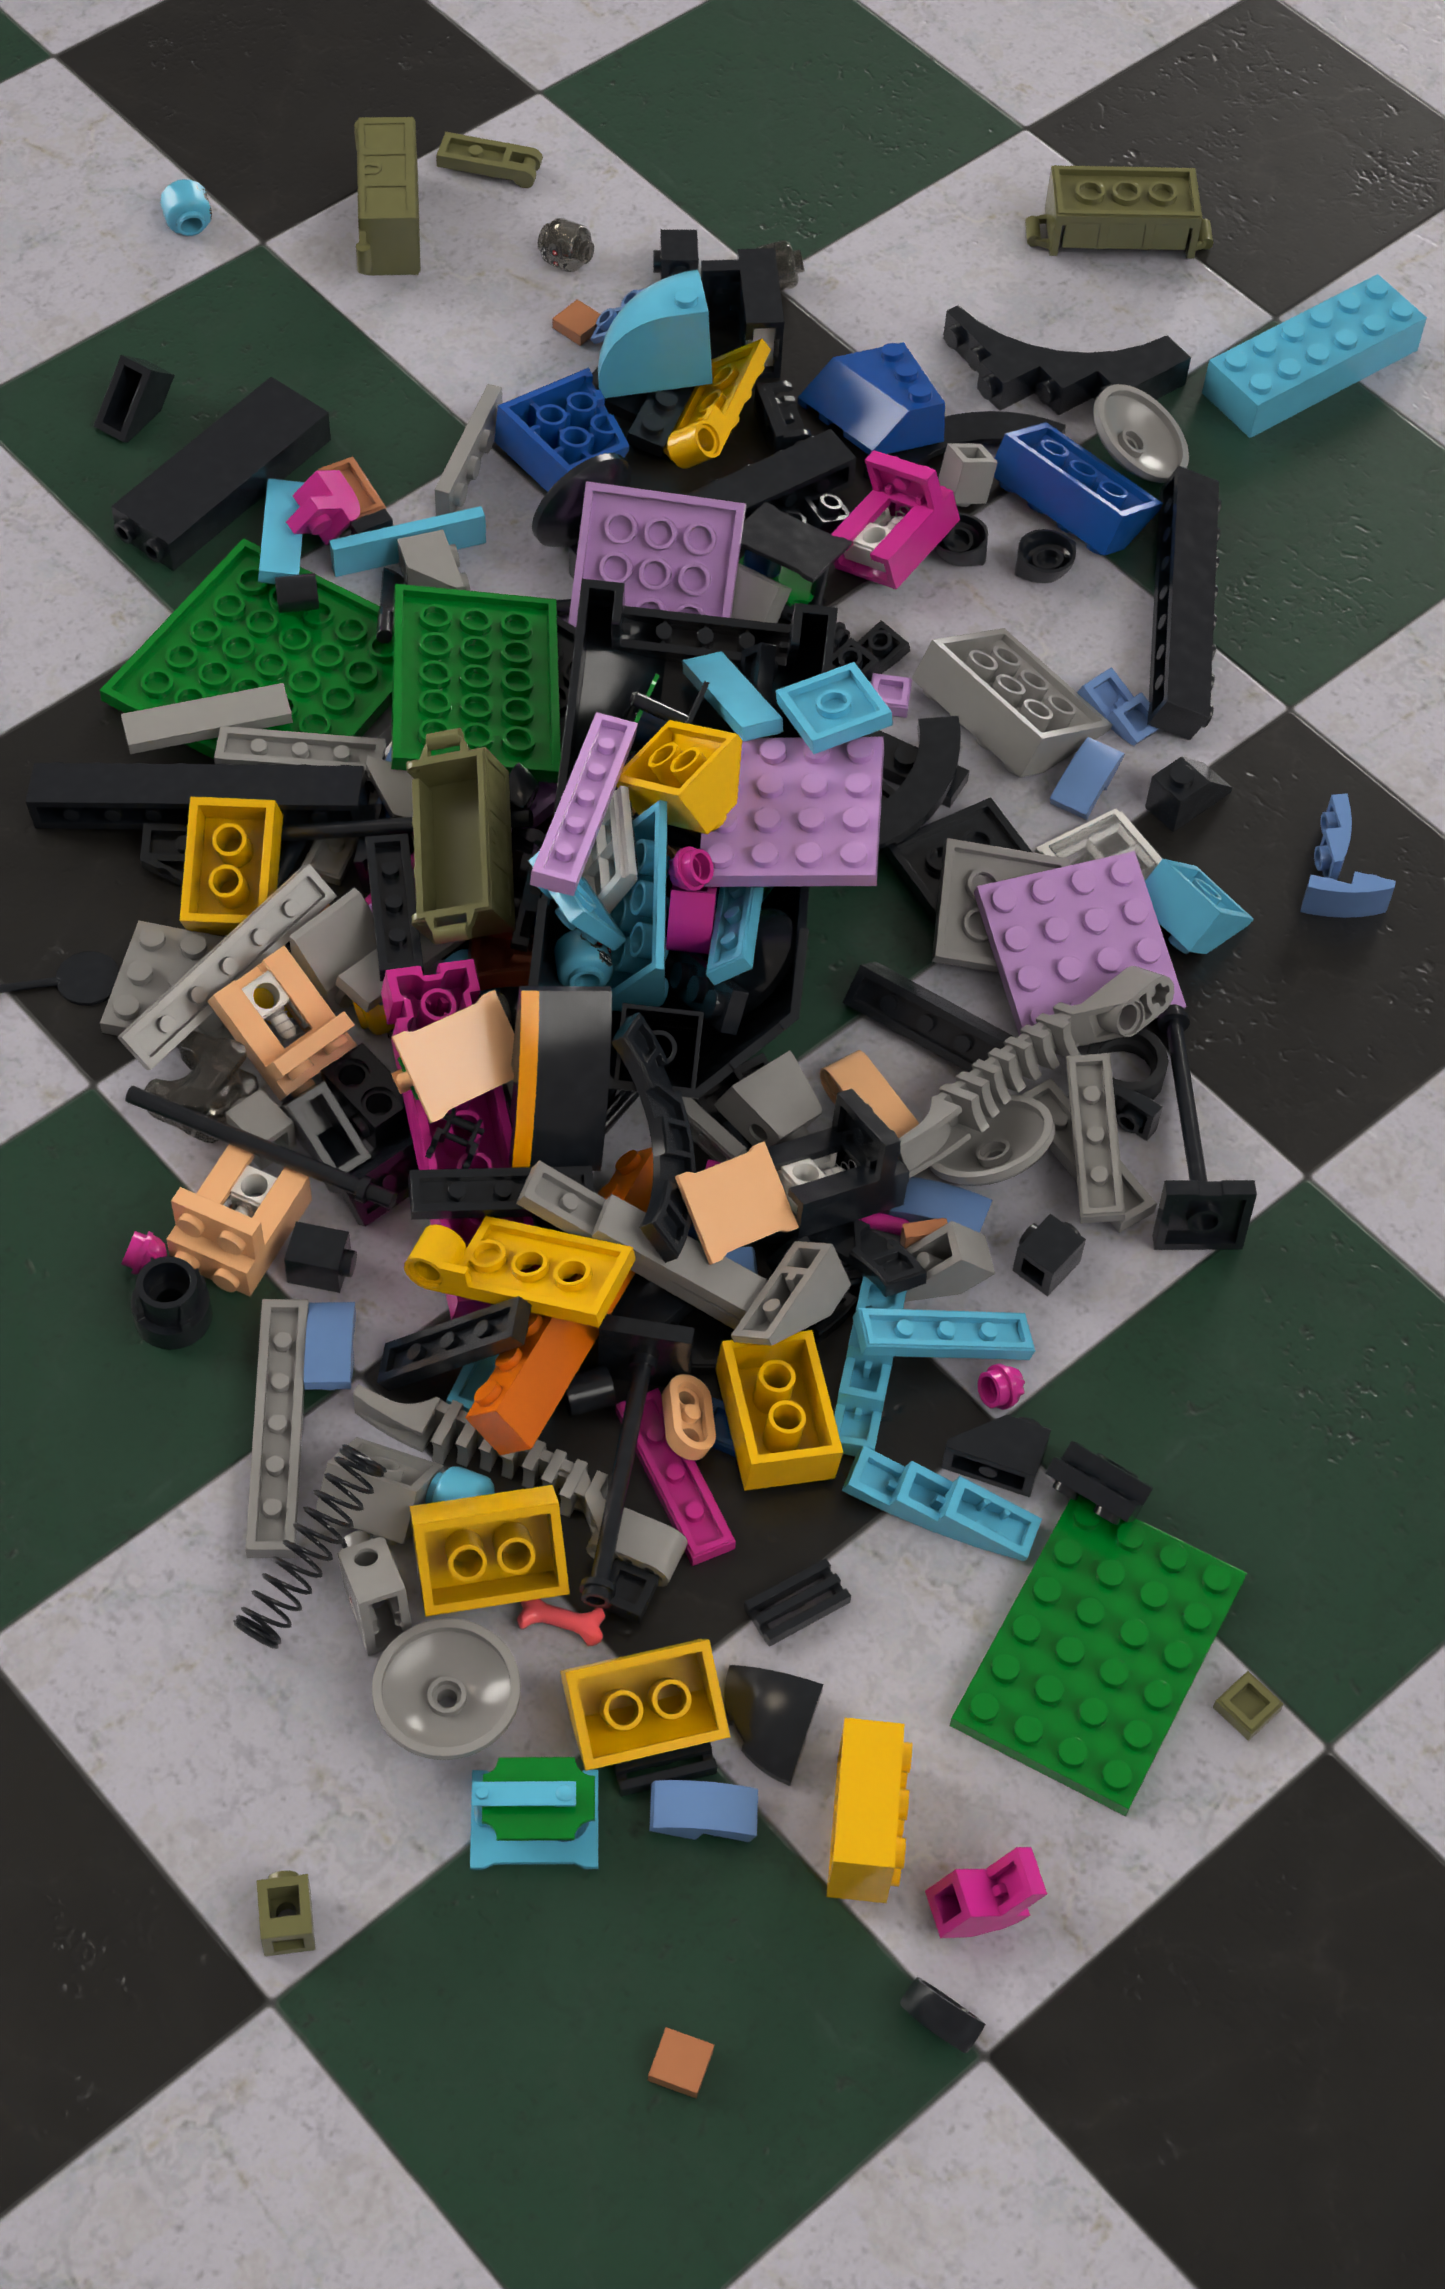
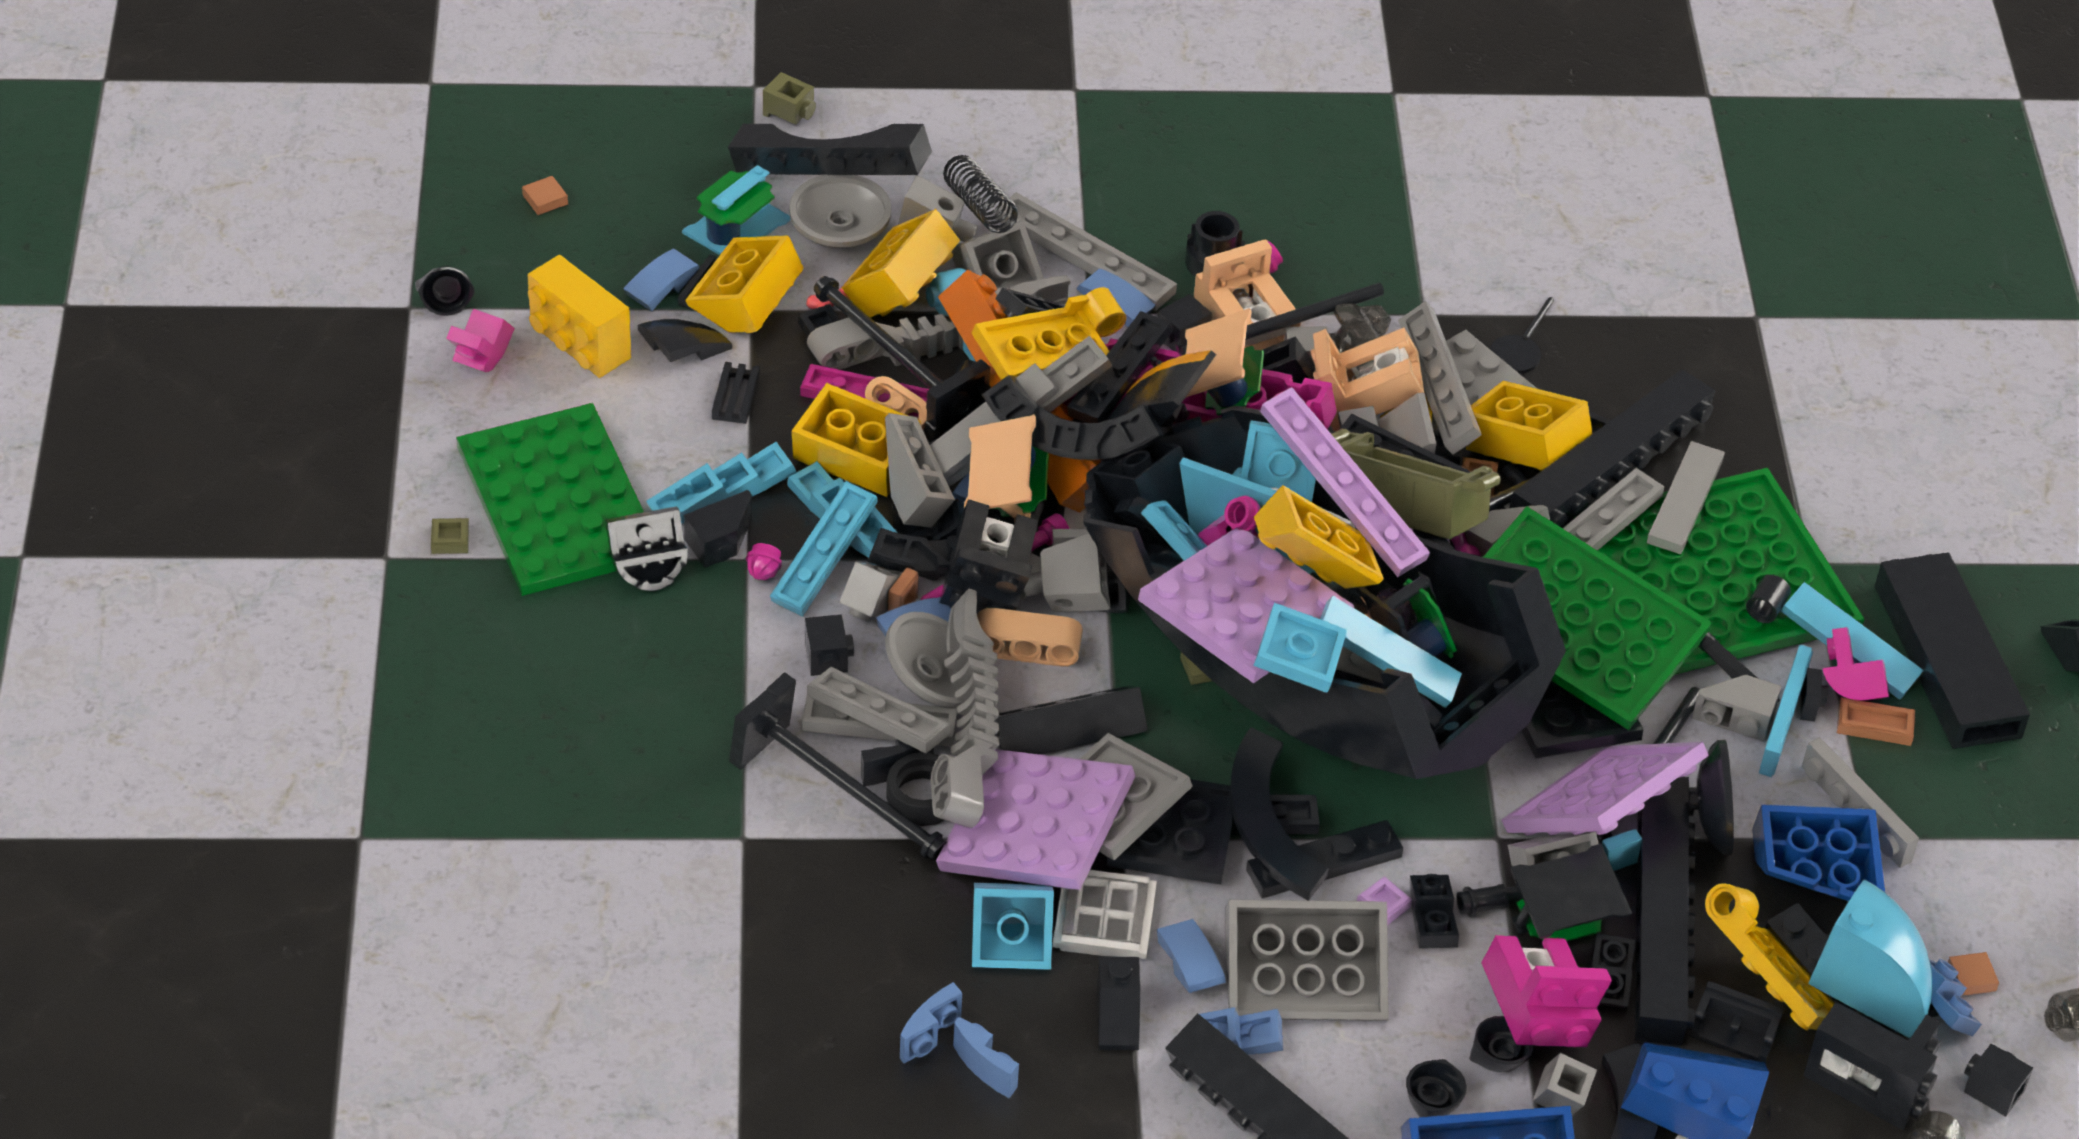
camera: 130 degrees right, 10 degrees down
(345, 1650) = (886, 151): none -> black arch

